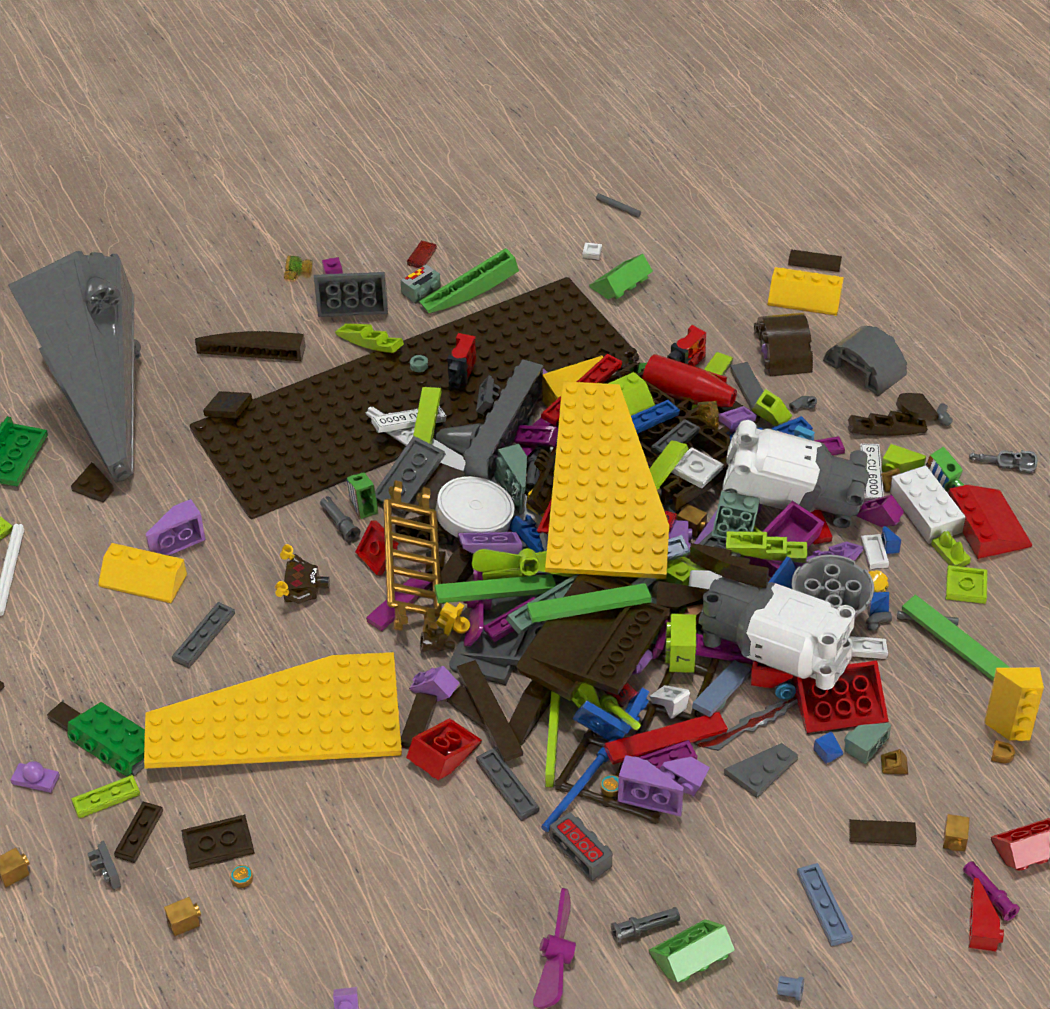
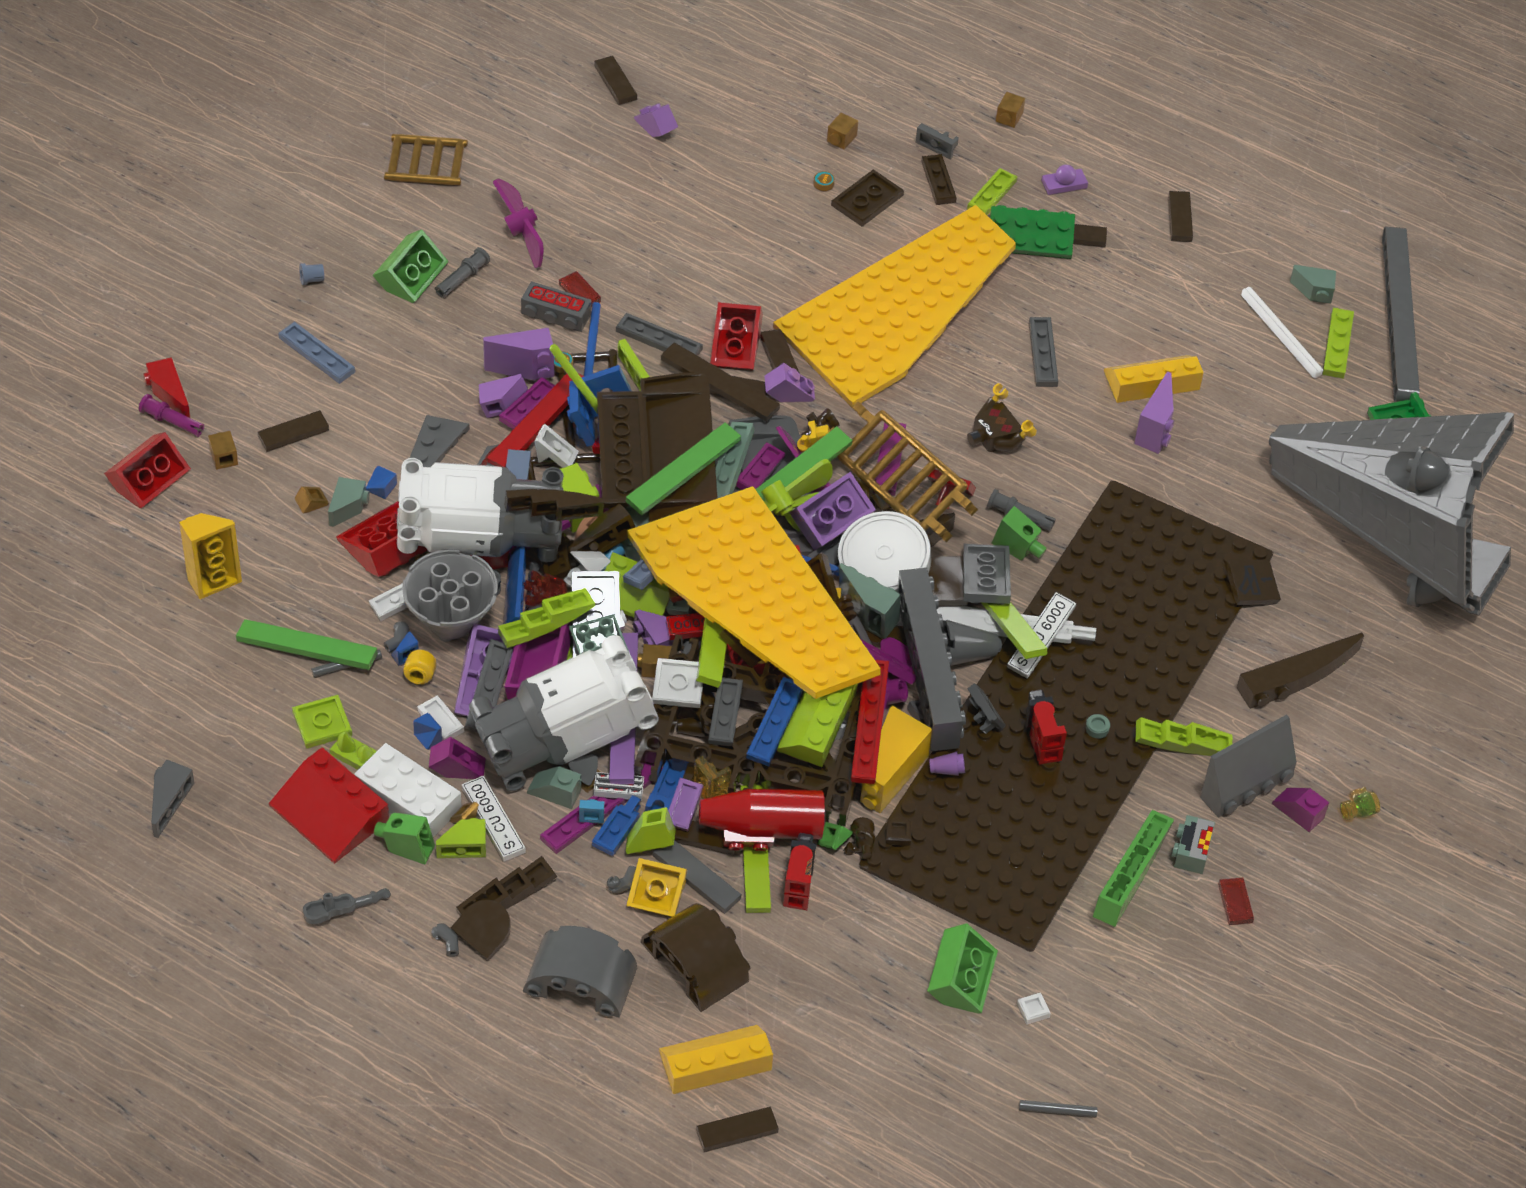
camera: 145 degrees right, 5 degrees up
(546, 862) = (577, 285): none -> clear red tile
(784, 385) = (657, 887): none -> yellow slope
(834, 542) = (491, 676): none -> dark grey tile

